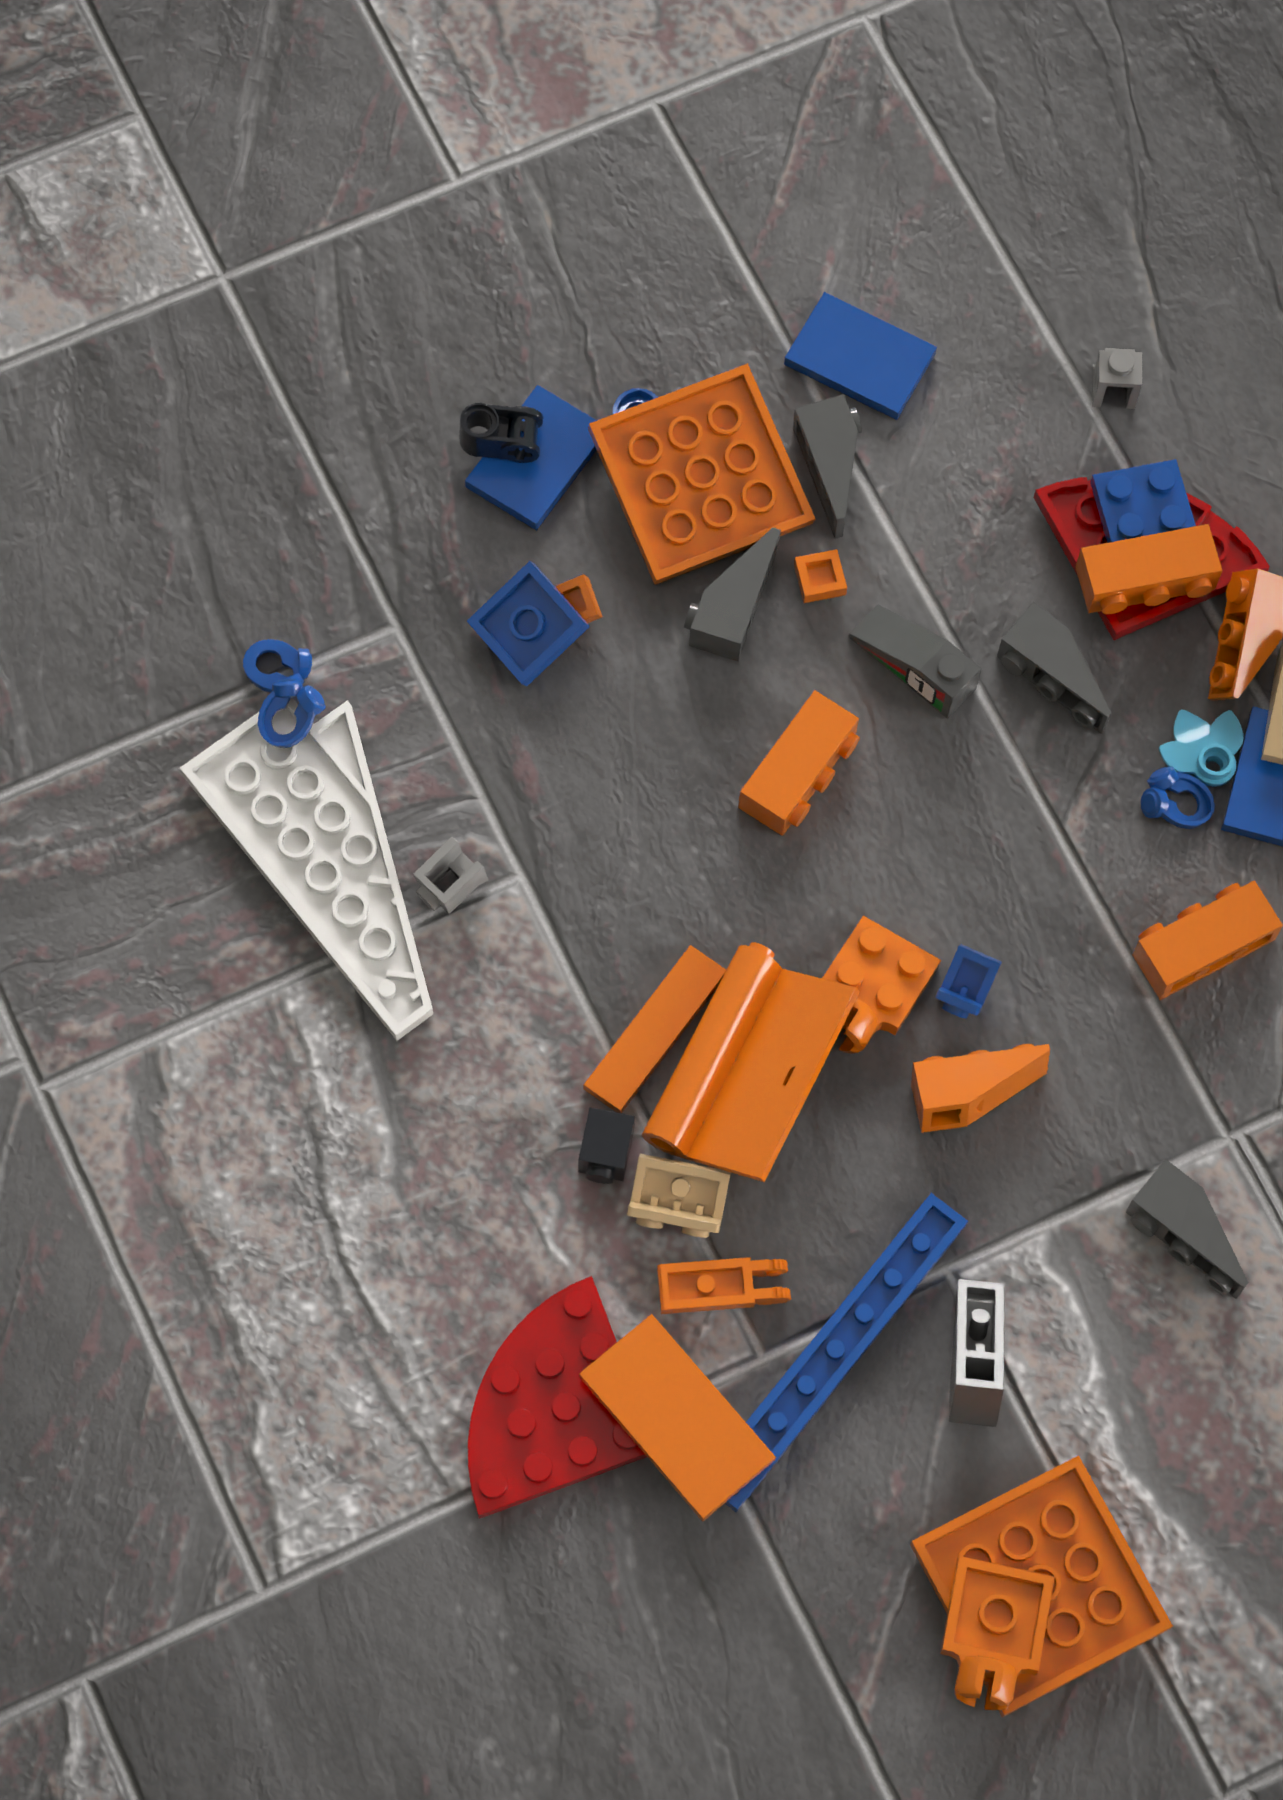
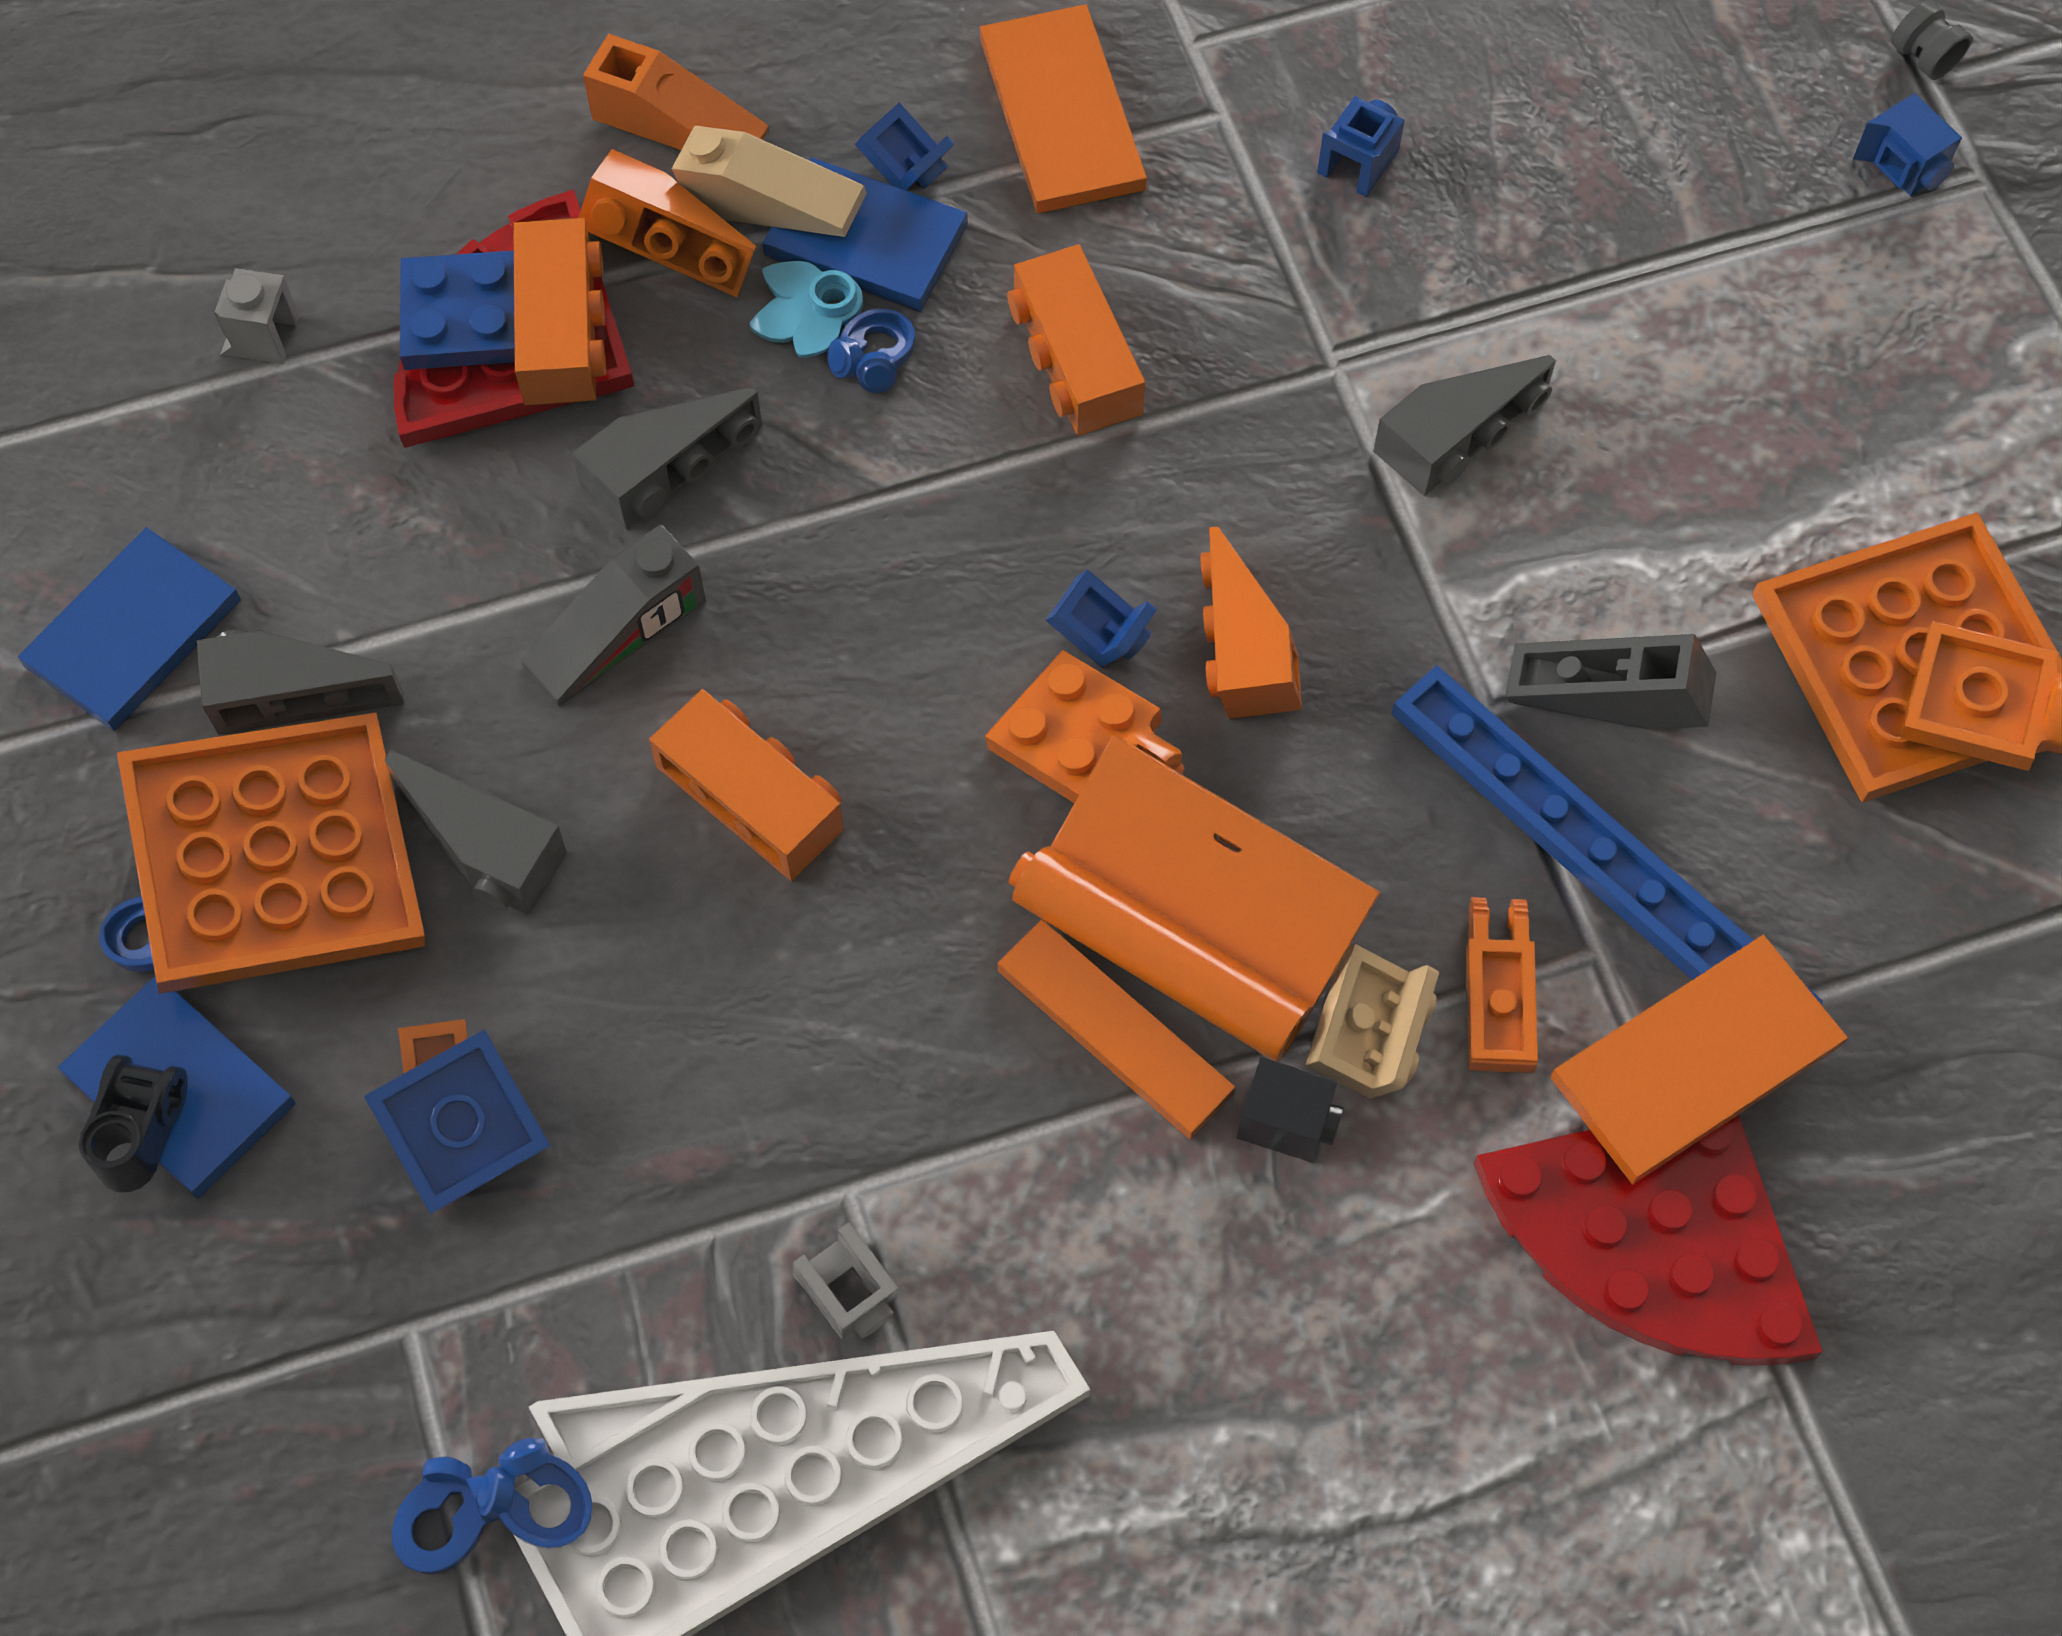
camera: 80 degrees left, 5 degrees down
(820, 576) = (464, 721): orange plate -> none

